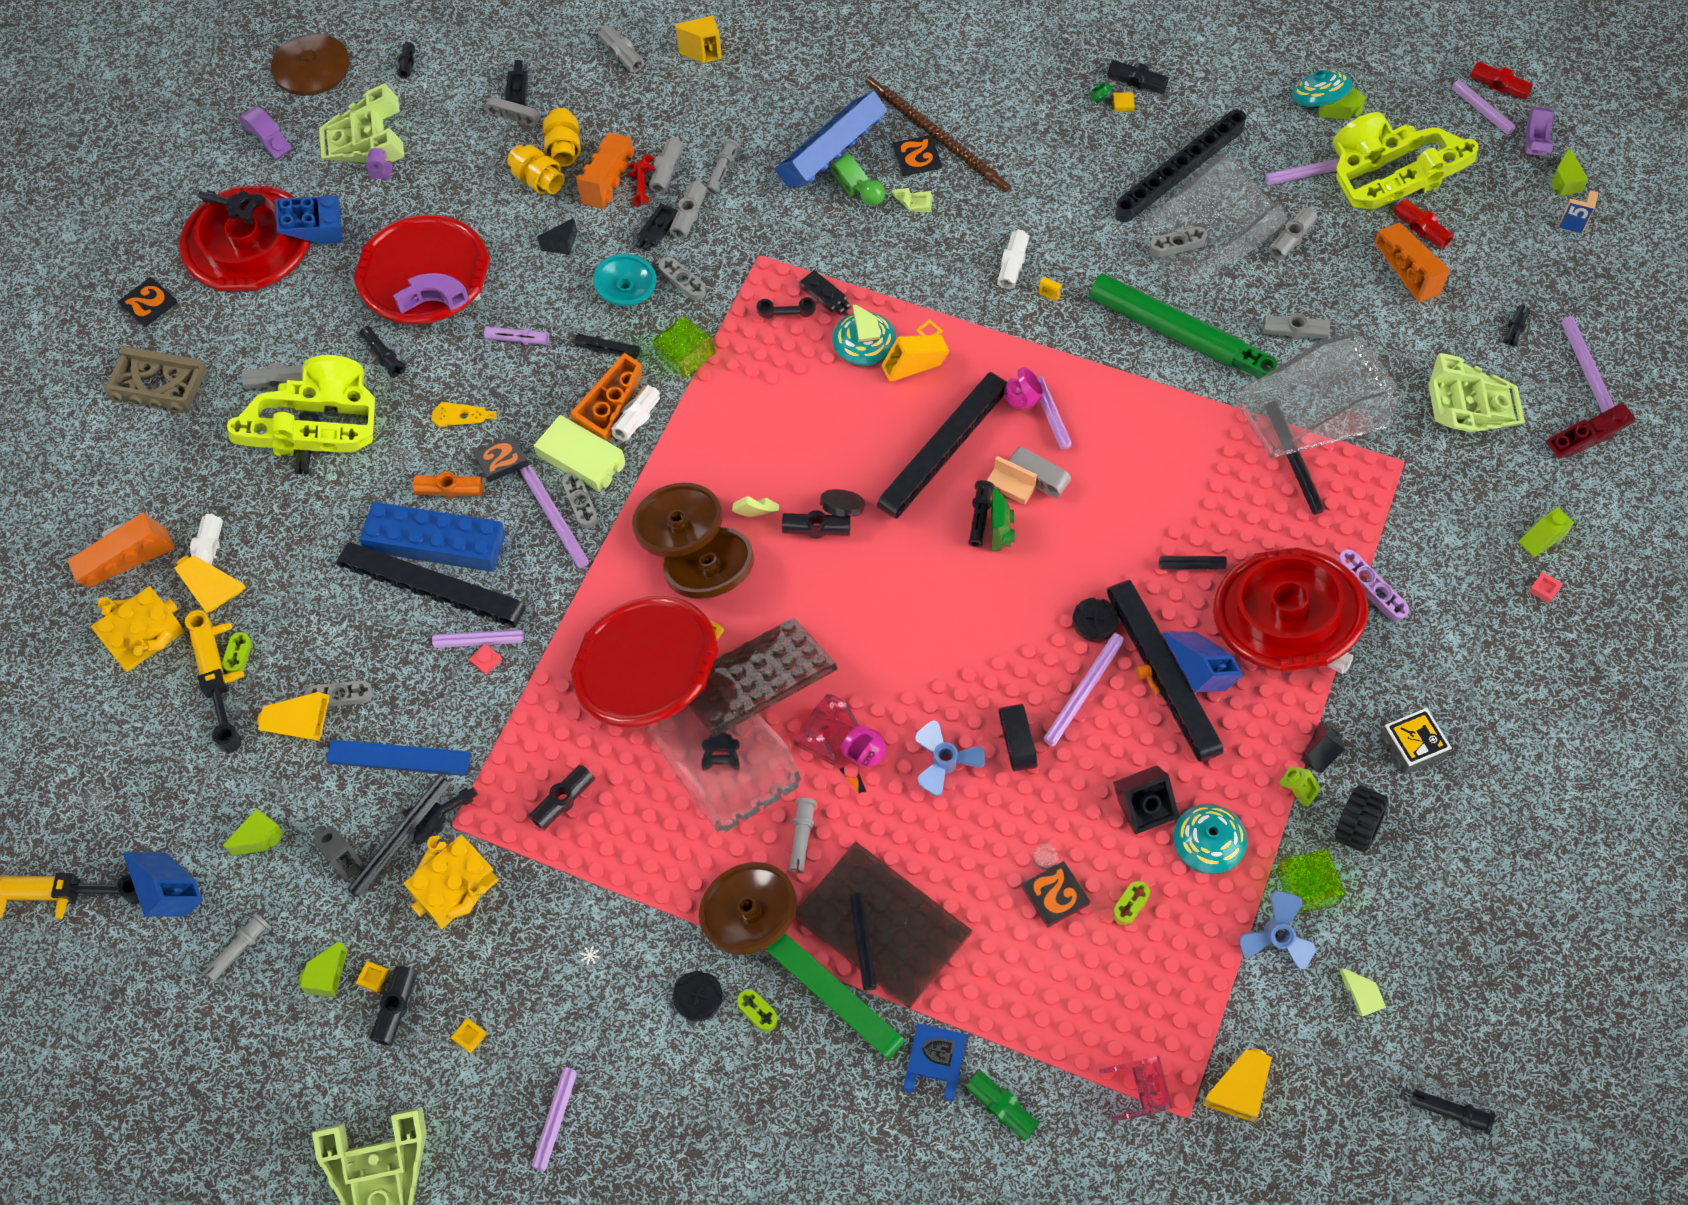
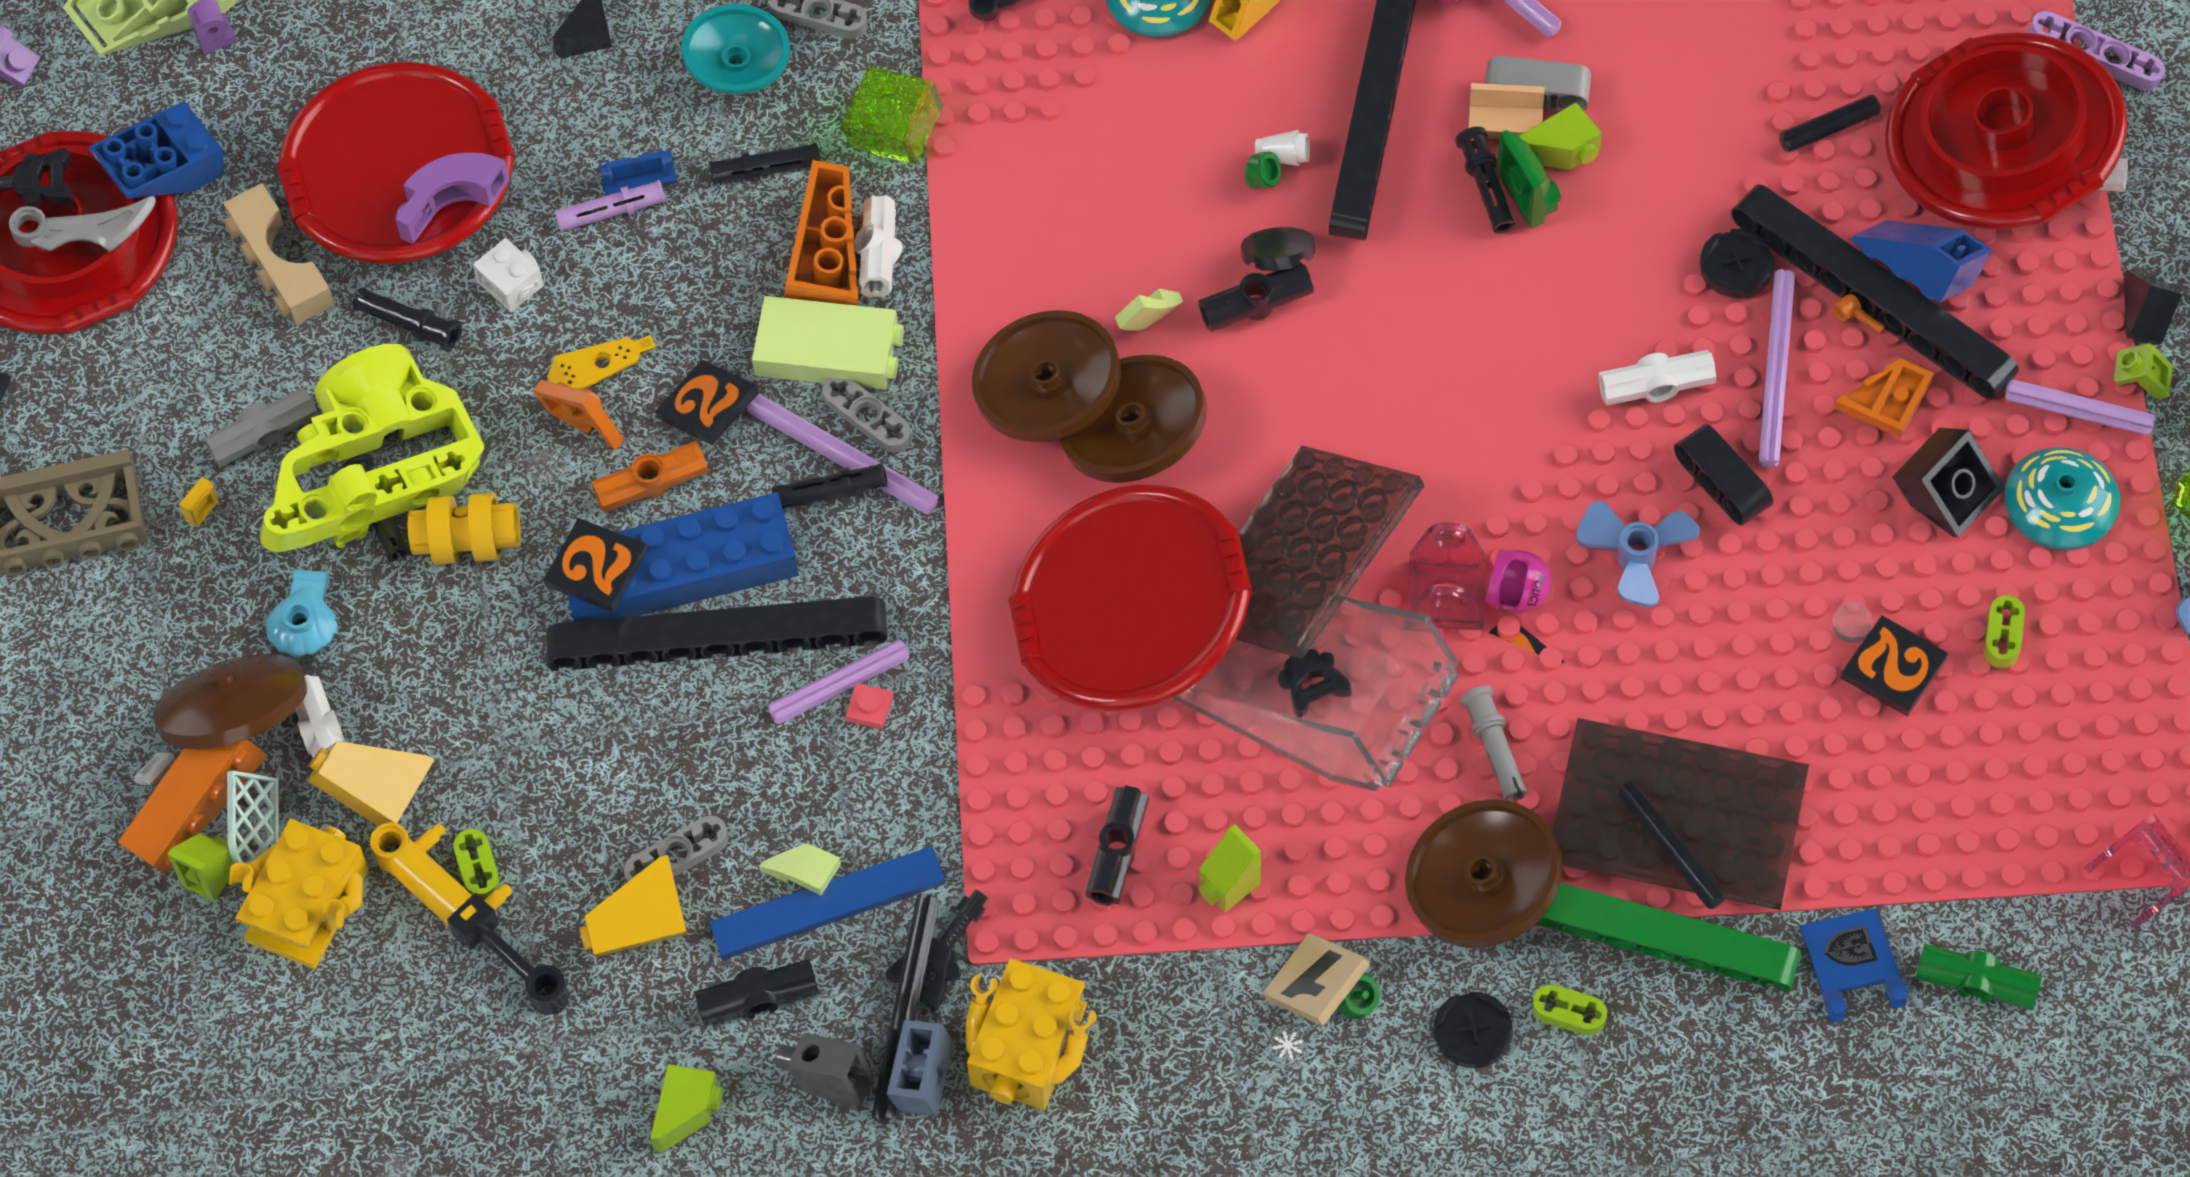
camera: 25 degrees left, 0 degrees up
(101, 586) = (202, 864): none -> lime slope
(129, 566) = (233, 808): none -> light aqua window
(163, 511) = (230, 701): none -> reddish brown dish
(221, 402) = (199, 502): none -> yellow tile
(234, 485) = (306, 603): none -> medium azure animal
(257, 243) = (105, 228): none -> light grey piece
(330, 789) = (756, 992): none -> black piece
(337, 472) = (480, 527): none -> yellow piece
(338, 271) = (298, 286): none -> tan arch
(382, 519) = (595, 565): none -> black tile
(384, 873) = (920, 1068): none -> sand blue brick
(397, 732) = (804, 866): none -> yellowish green slope
(434, 435) = (578, 409): none -> orange wing
(443, 349) = (508, 274): none -> white head
(541, 323) = (638, 171): none -> blue hinge
(543, 532) = (846, 483): none -> black pin
(610, 841) = (1230, 870): none -> lime slope
(624, 925) = (1316, 979): none -> tan tile
(644, 944) = (1361, 999): none -> green hat
(861, 457) = (1262, 170): none -> green tile
(879, 450) = (1288, 147): none -> white cone
(1011, 665) = (1657, 377): none -> white piece
(1033, 508) = (1565, 139): none -> lime slope
(1139, 734) = (1888, 397): none -> orange wing
(1249, 789) = (2080, 407): none -> lavender axle

